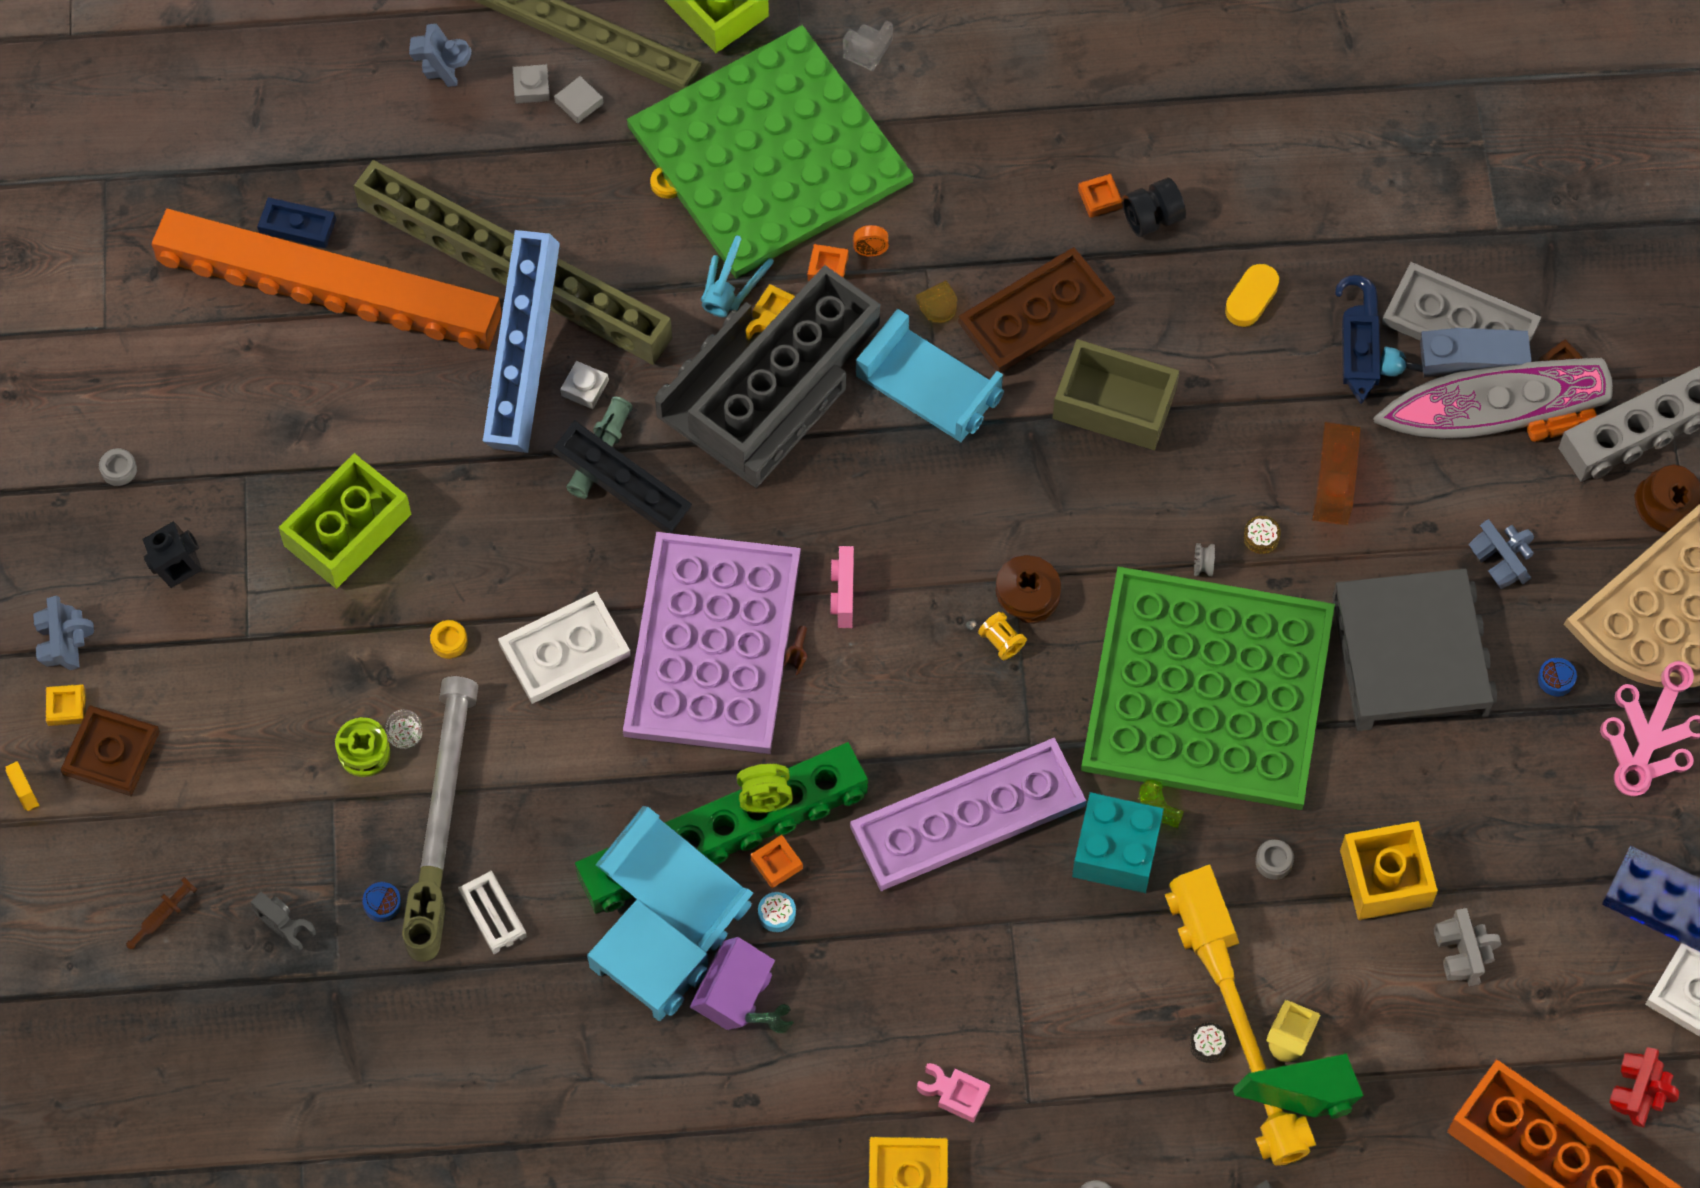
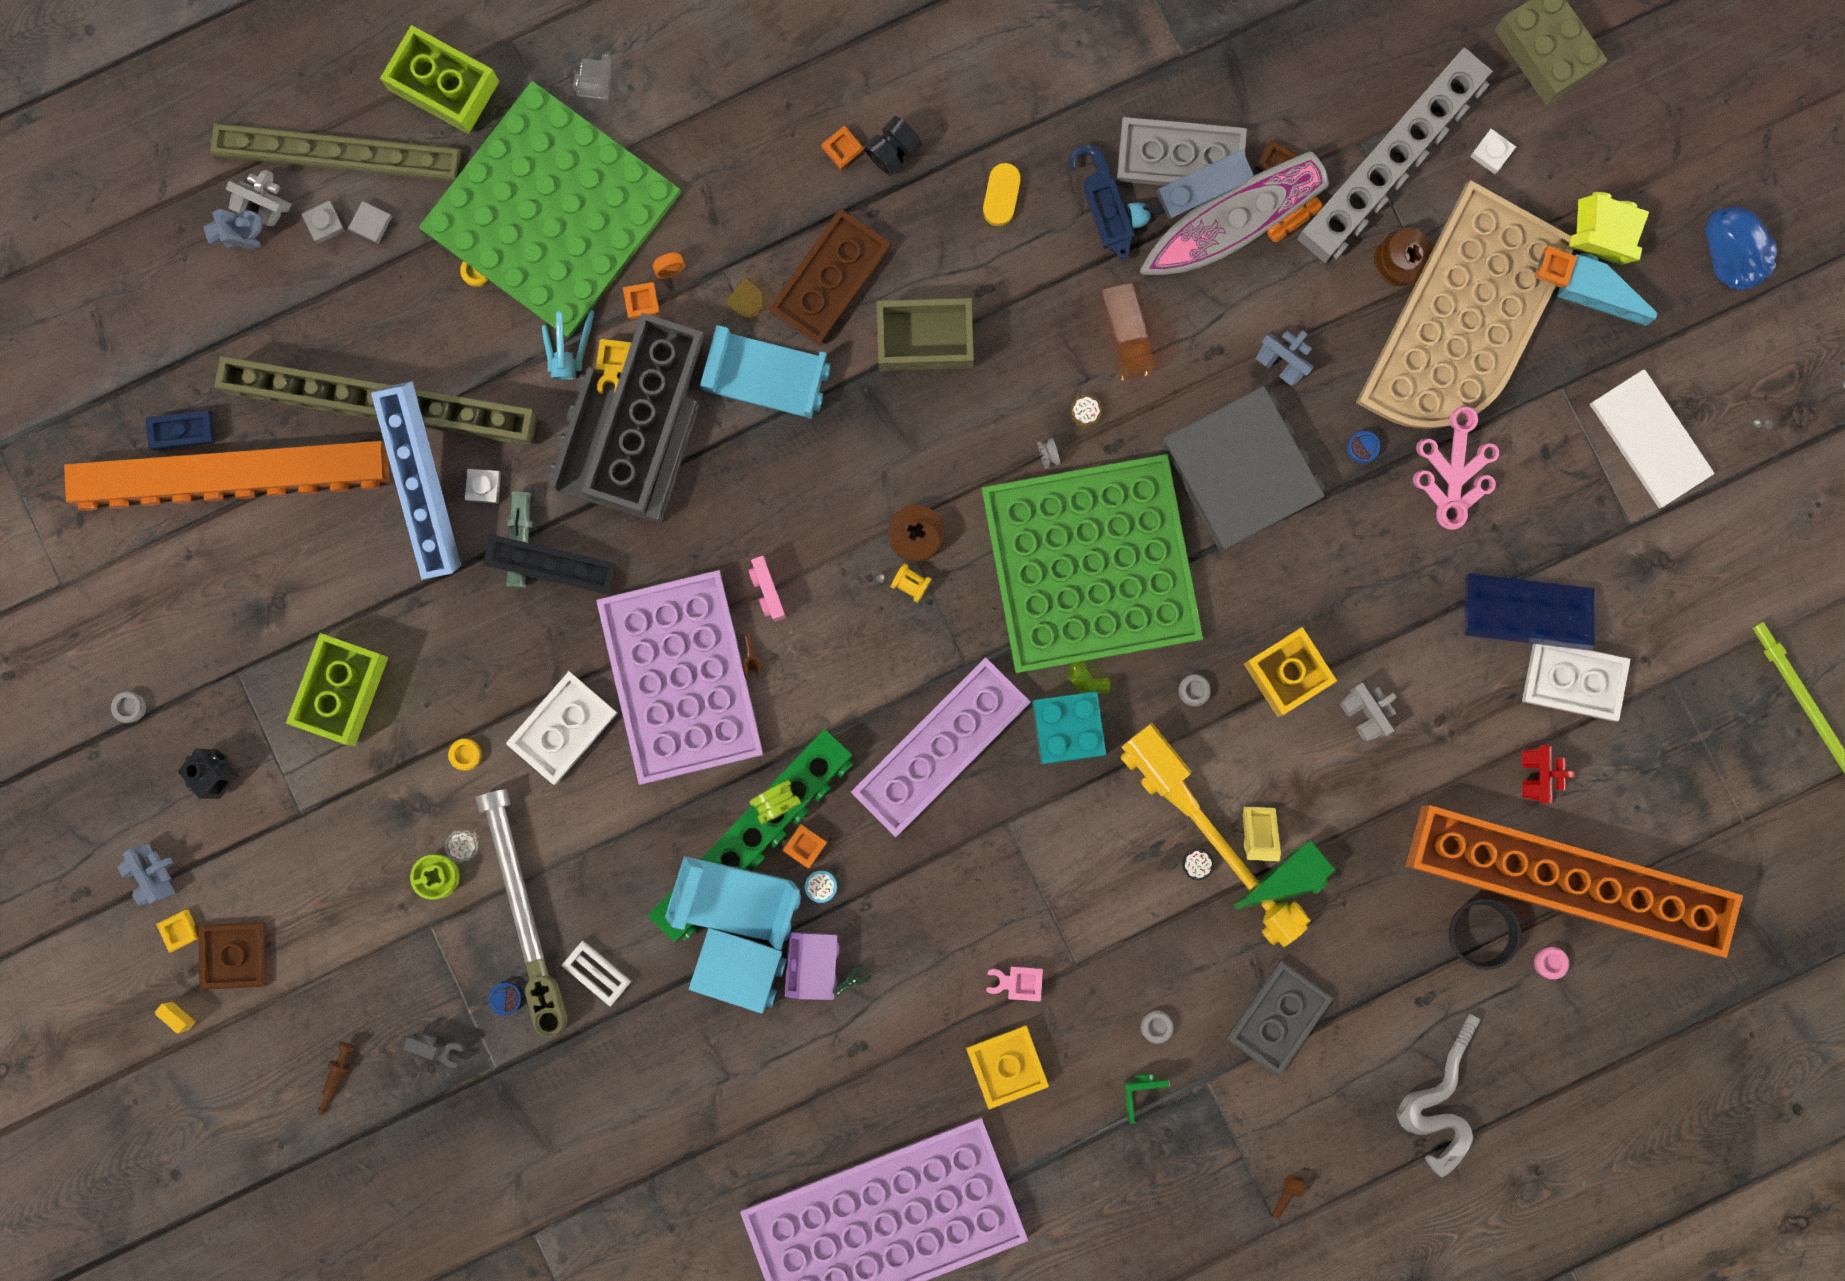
camera: 20 degrees left, 20 degrees up
(487, 24) = (244, 194): none -> light grey hips

